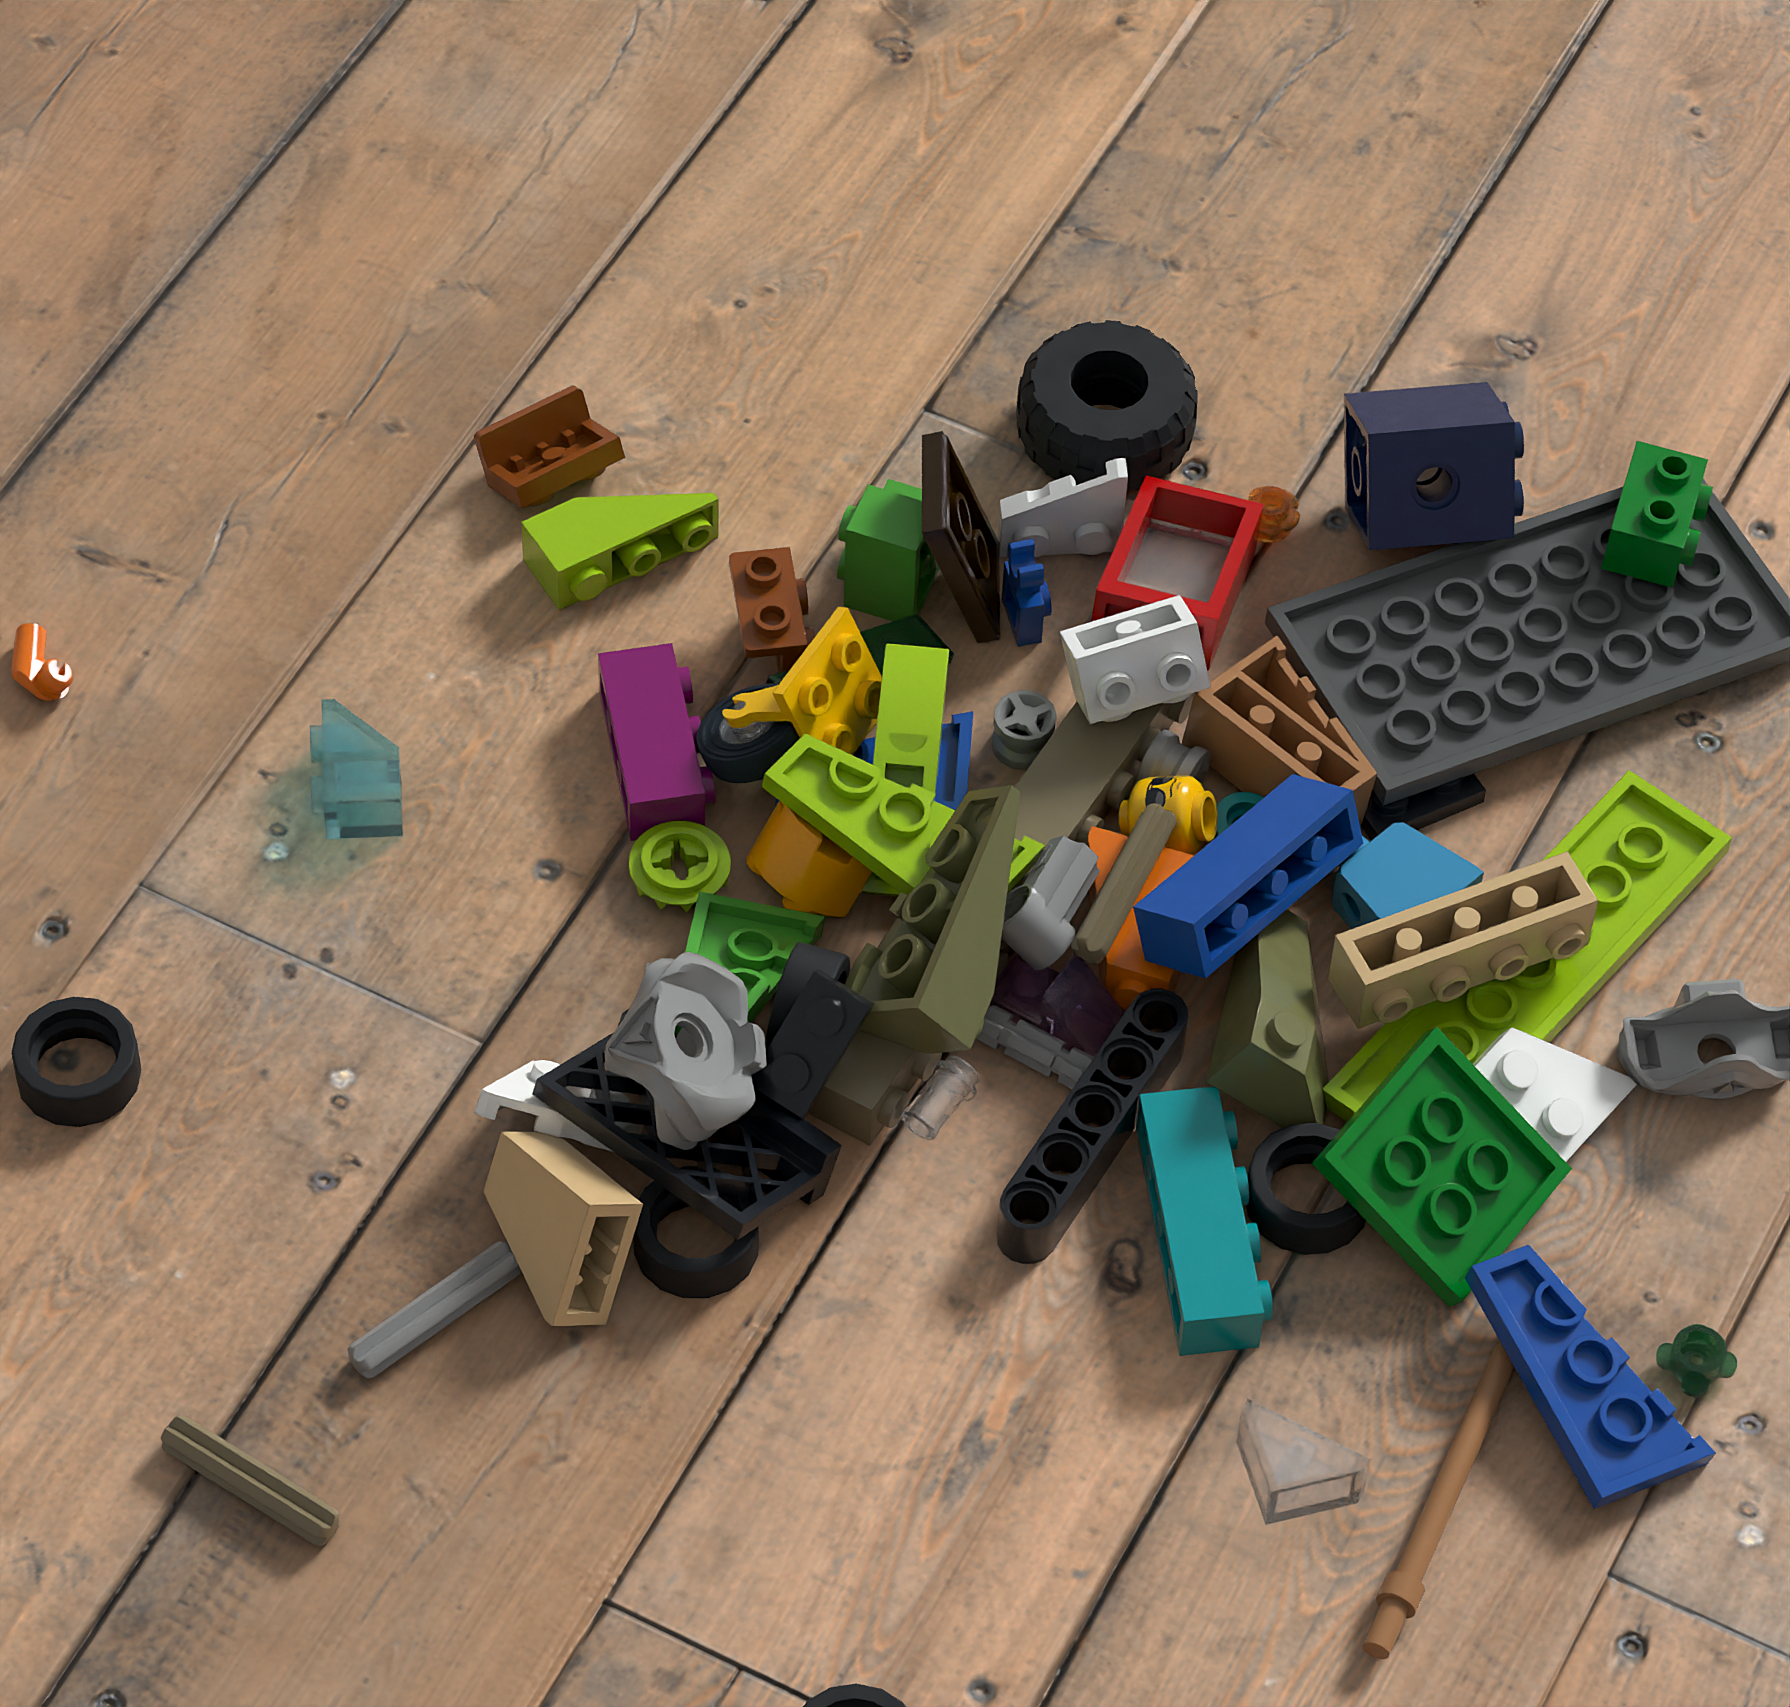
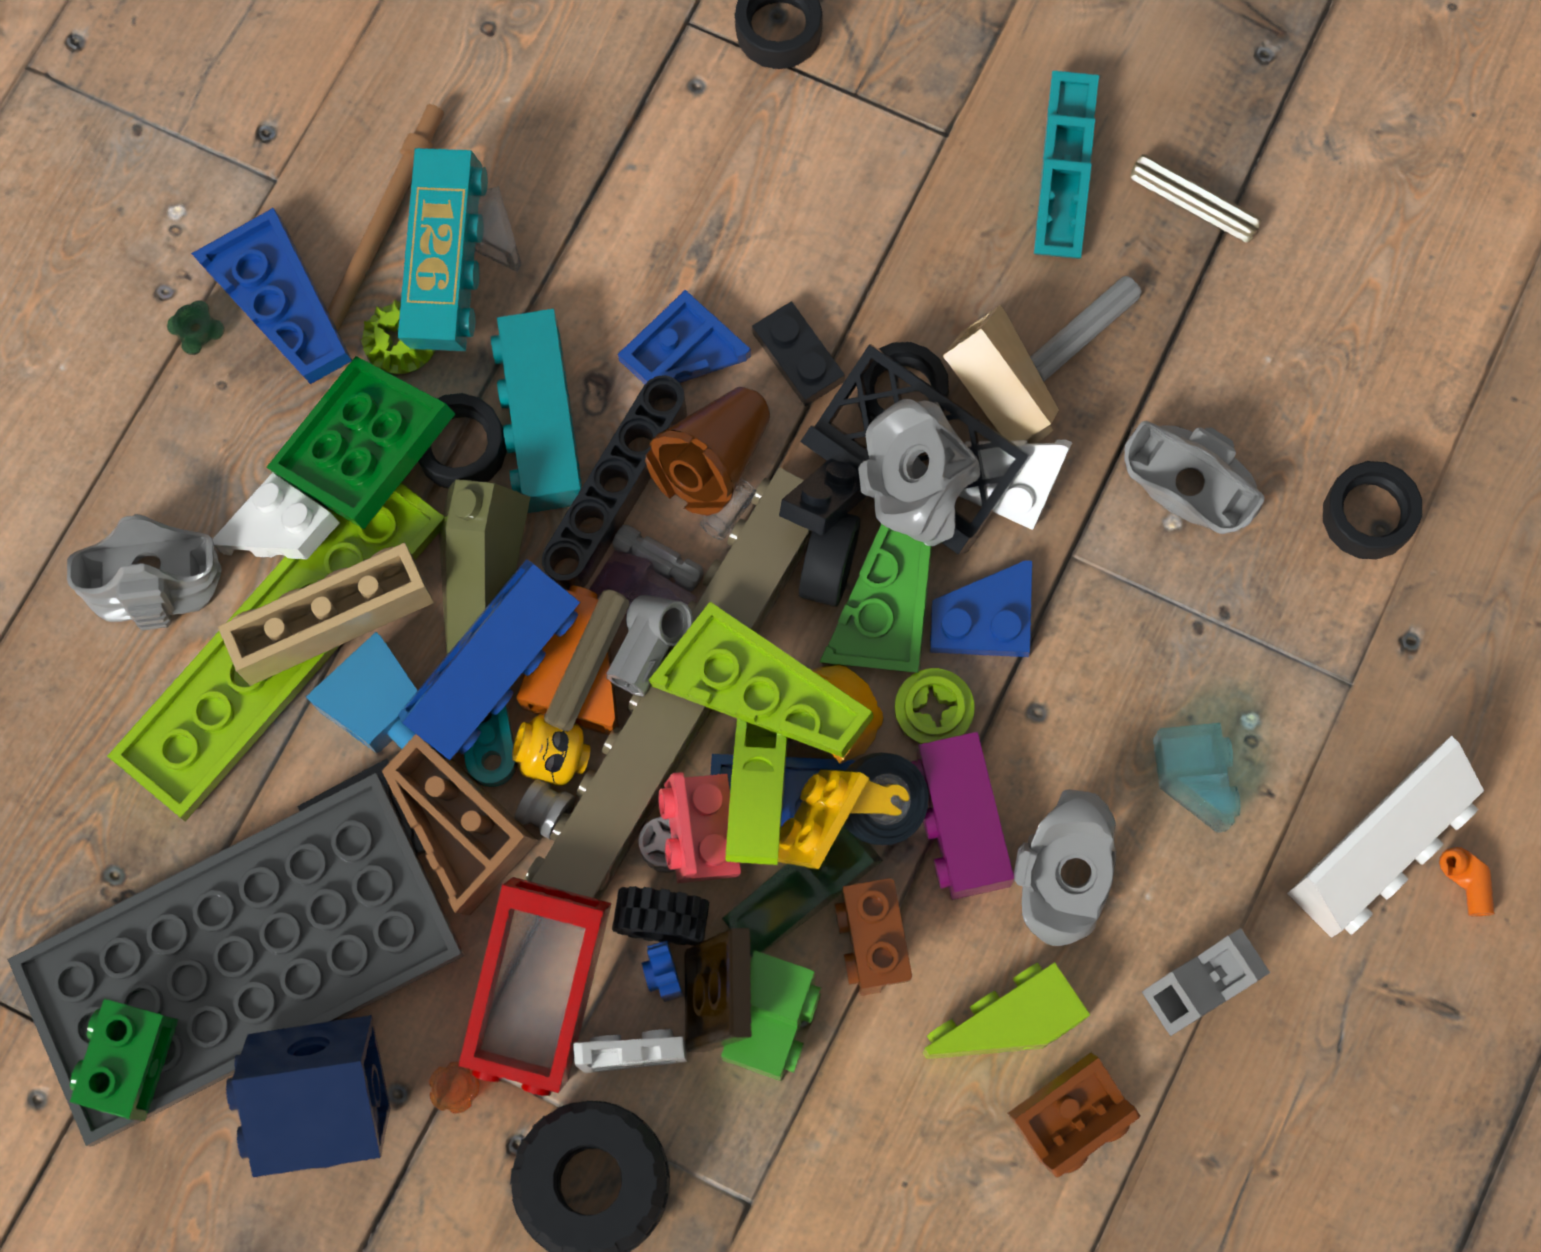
camera: 175 degrees left, 20 degrees up
(138, 693) = (1389, 839): none -> white slope
(277, 1104) = (1229, 492): none -> light grey piece
(382, 566) = (1205, 982): none -> light grey brick
(434, 1532) = (1066, 165): none -> teal slope
(515, 688) = (1076, 828): none -> light grey piece
(598, 966) = (986, 616): none -> blue wing
(839, 1296) = (798, 353): none -> black plate
(943, 950) = (730, 572): olive wedge -> none
(958, 1142) = (709, 450): none -> dark orange cone
(980, 719) = (698, 827): none -> coral bracket
(1003, 1303) = (683, 344): none -> blue wing
(1021, 638) = (660, 915): none -> black tyre
(1135, 660) = (572, 846): white brick -> none
(1345, 1384) = (442, 250): none -> teal brick
(1422, 1358) = (378, 343): none -> lime gear

